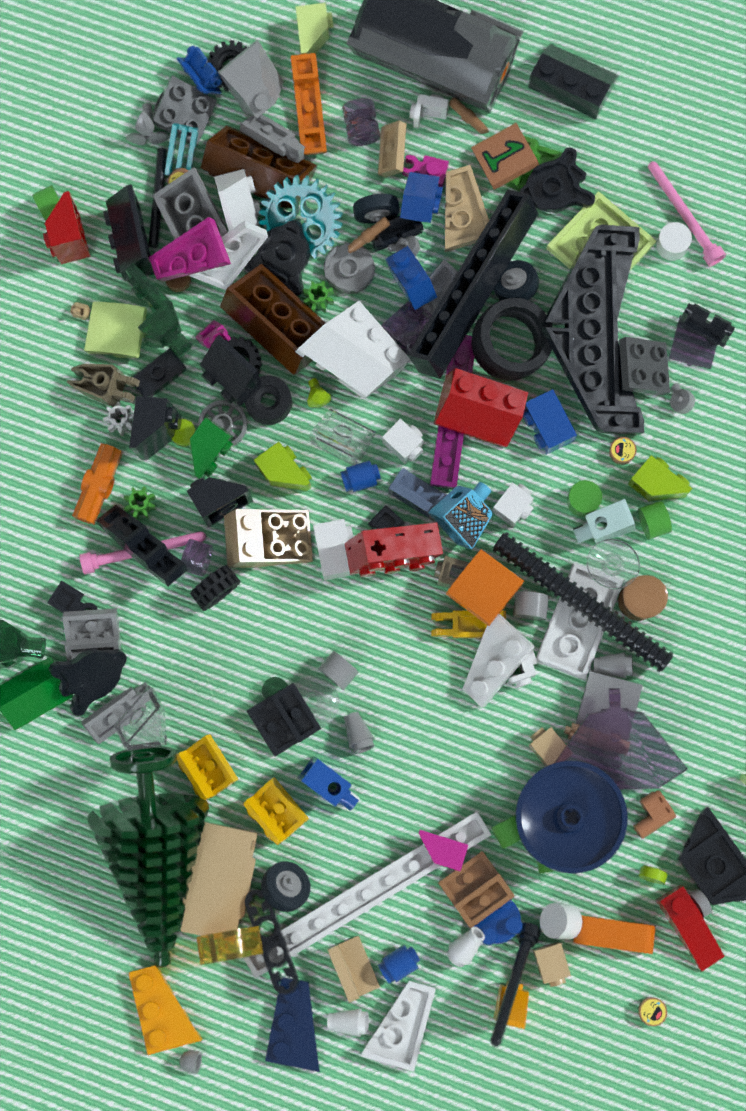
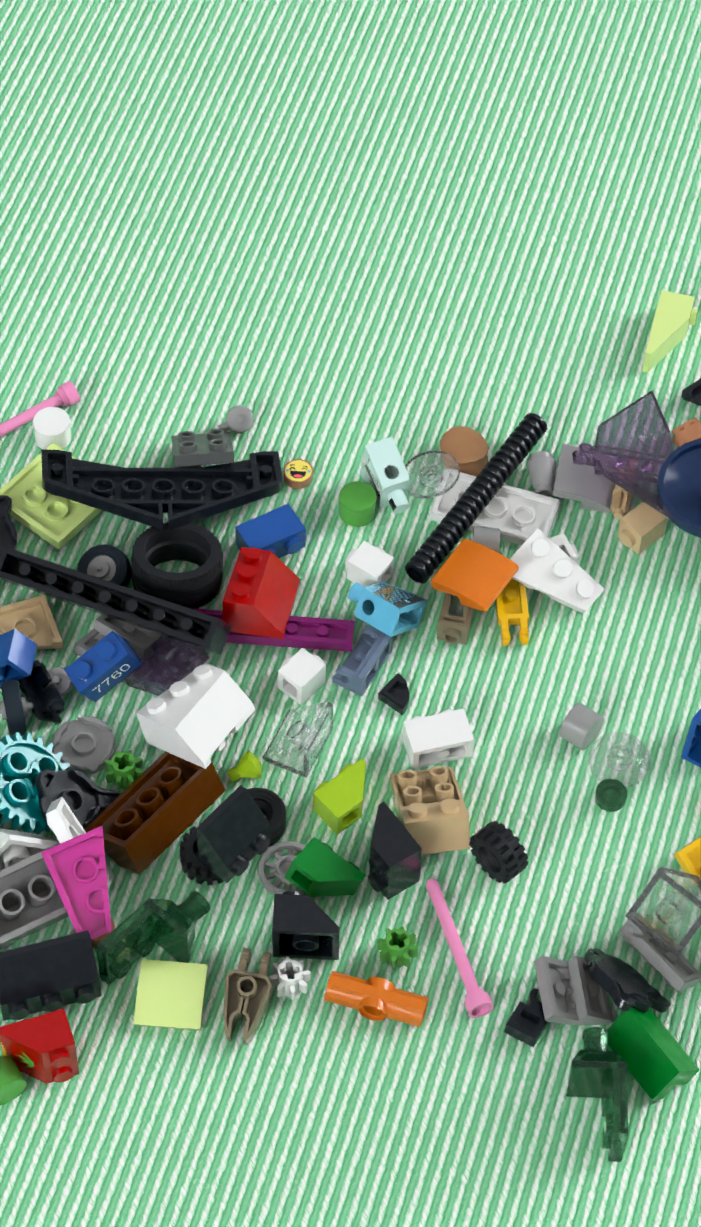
camera: 100 degrees left, 25 degrees down
(80, 310) = (144, 1042): tan rock -> none
(142, 545) = (453, 937): black slope -> none
(159, 373) = (225, 941): black plate -> none
(197, 557) = (462, 879): clear purple piece -> none
(210, 332) = (176, 877): dark pink plate -> none
(283, 719) = (644, 779): black slope -> none
(358, 734) = (650, 707): light grey cone -> none
(360, 476) = (348, 717): blue brick -> none
(368, 235) = (47, 714): medium nougat piece -> none
(393, 549) = (439, 663): red piece -> none
(654, 520) = (376, 430): bright green piece -> none
(657, 482) = (333, 439): lime slope -> none
(692, 348) = (167, 413): piece -> none
(695, 321) = (148, 403): black hinge -> none

